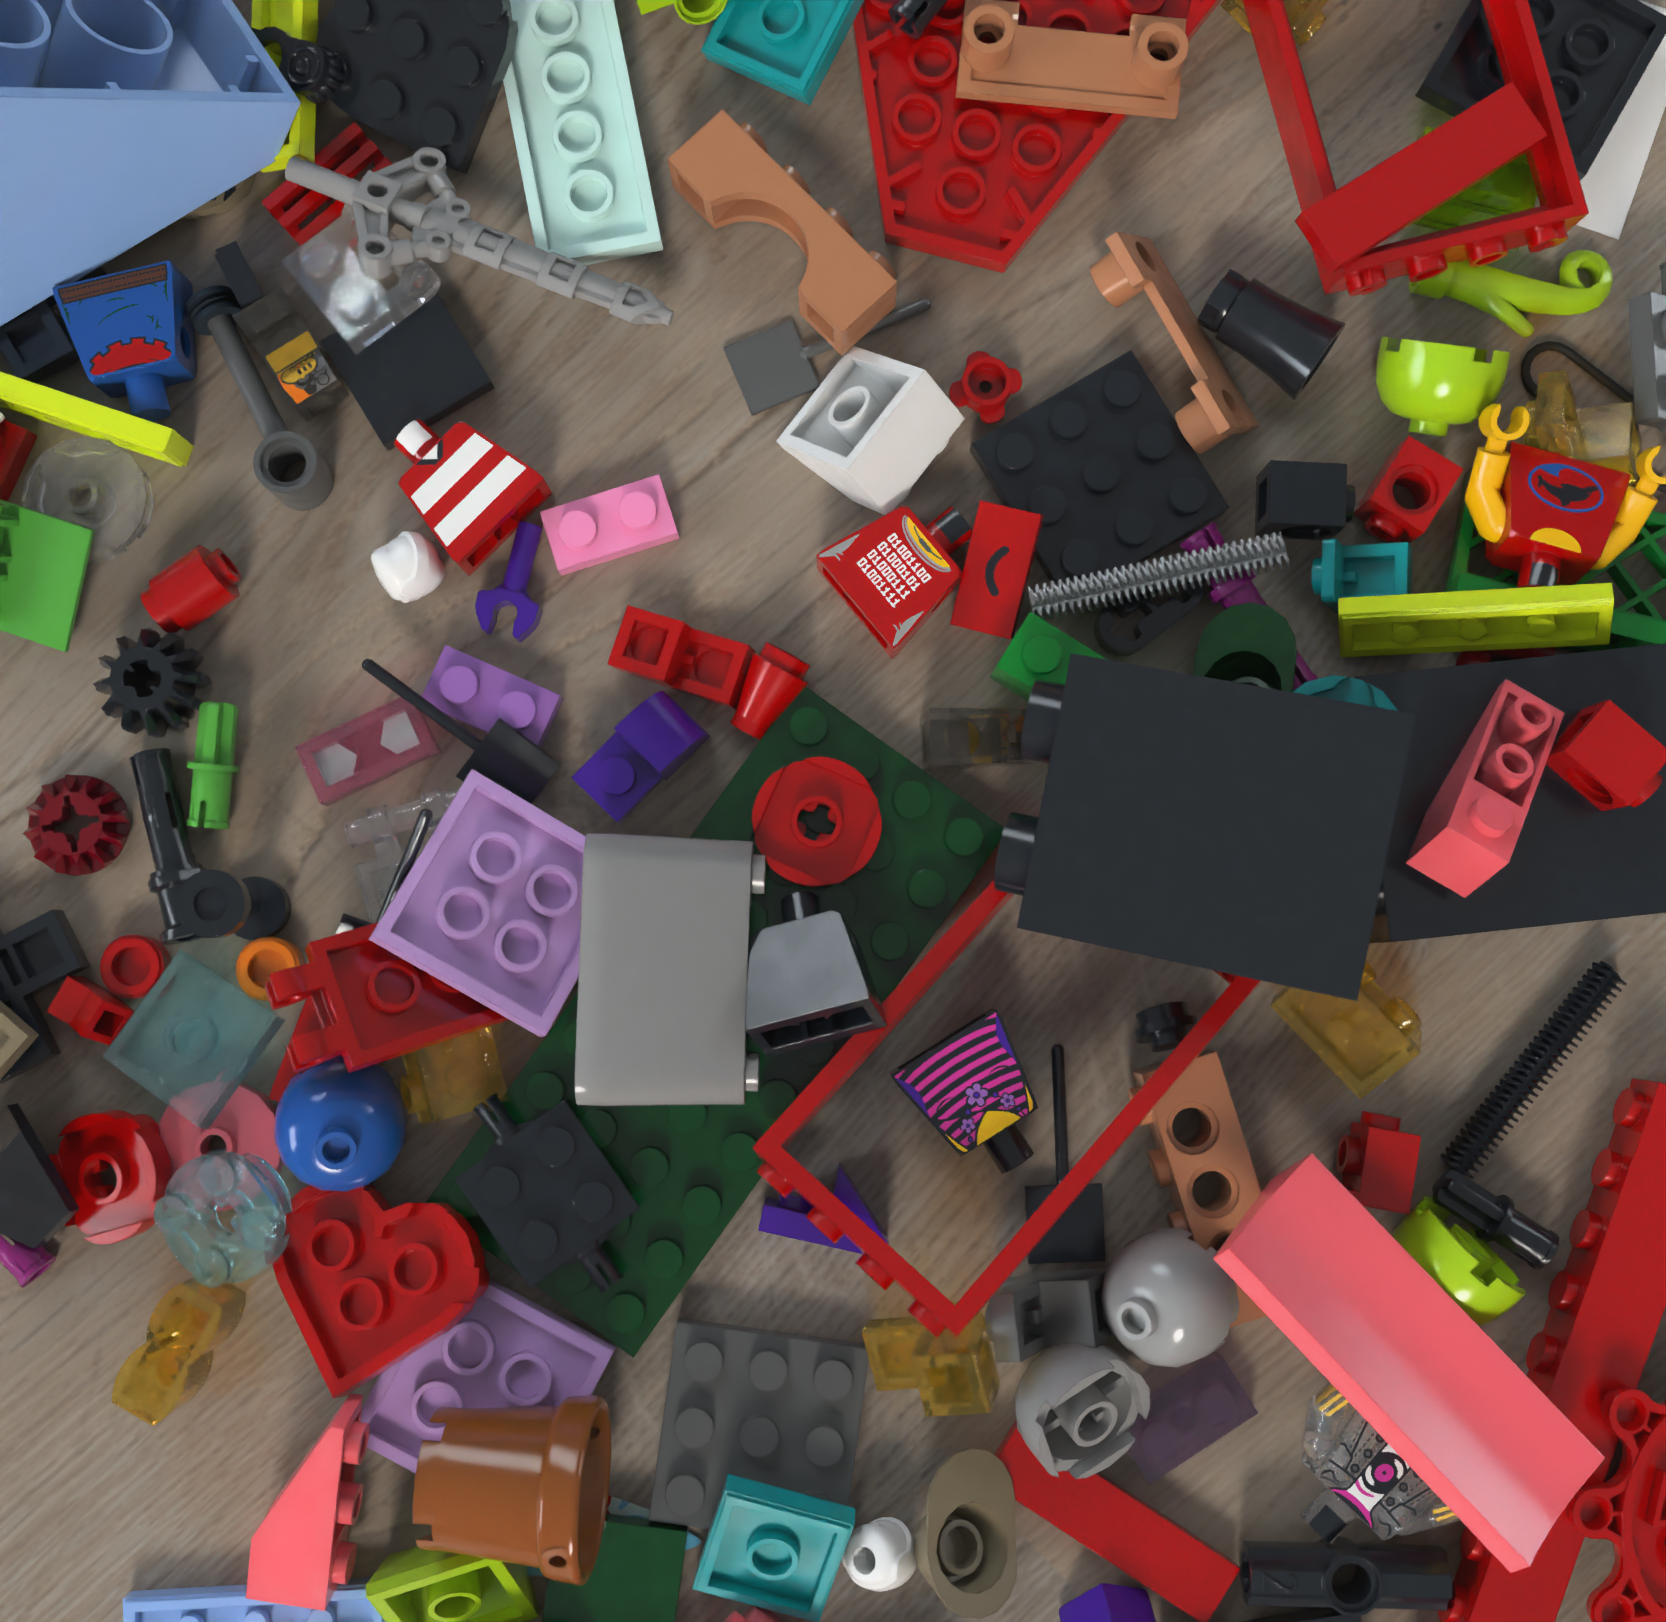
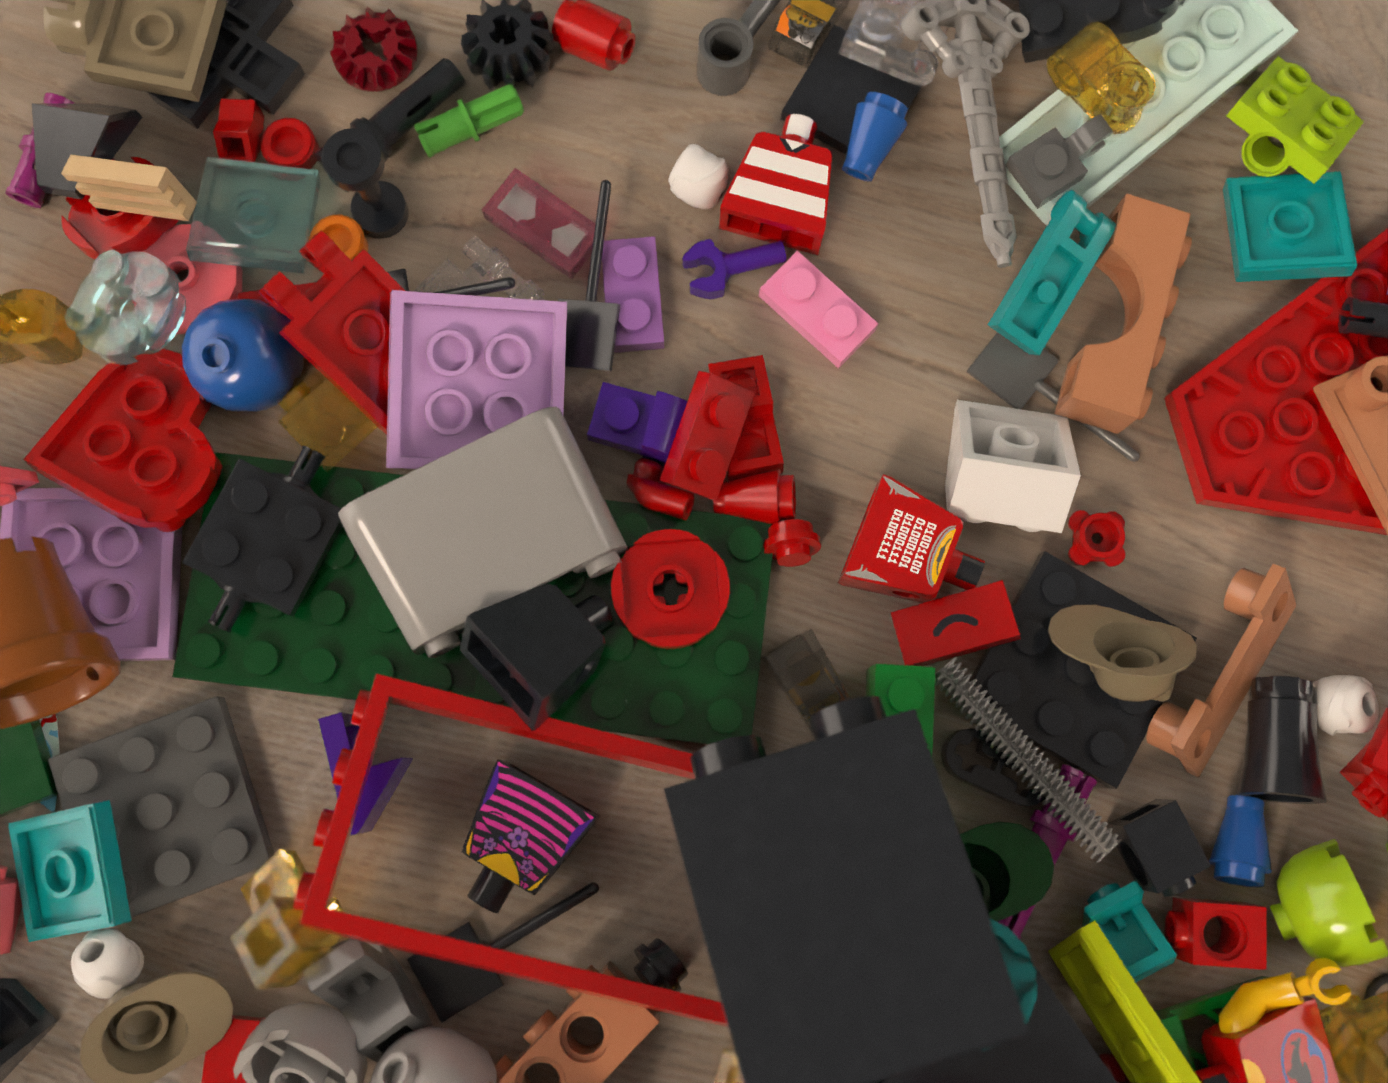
camera: 60 degrees right, 5 degrees down
(103, 1149) = (130, 187): none -> tan tile
(464, 368) = (874, 132): none -> blue cone
(528, 111) = (1101, 73): none -> clear yellow piece
(594, 211) = (1054, 164): none -> dark grey plate
(684, 704) = (707, 435): none -> red plate
(705, 276) = (1052, 274): none -> teal plate
(711, 788) = (657, 496): none -> red arm
(831, 680) = (792, 542): none -> red plate
(1112, 425) = (1125, 652): none -> dark tan piece
(1266, 251) = (1345, 704): none -> white piece
(1341, 423) = (1242, 844): none -> blue cone

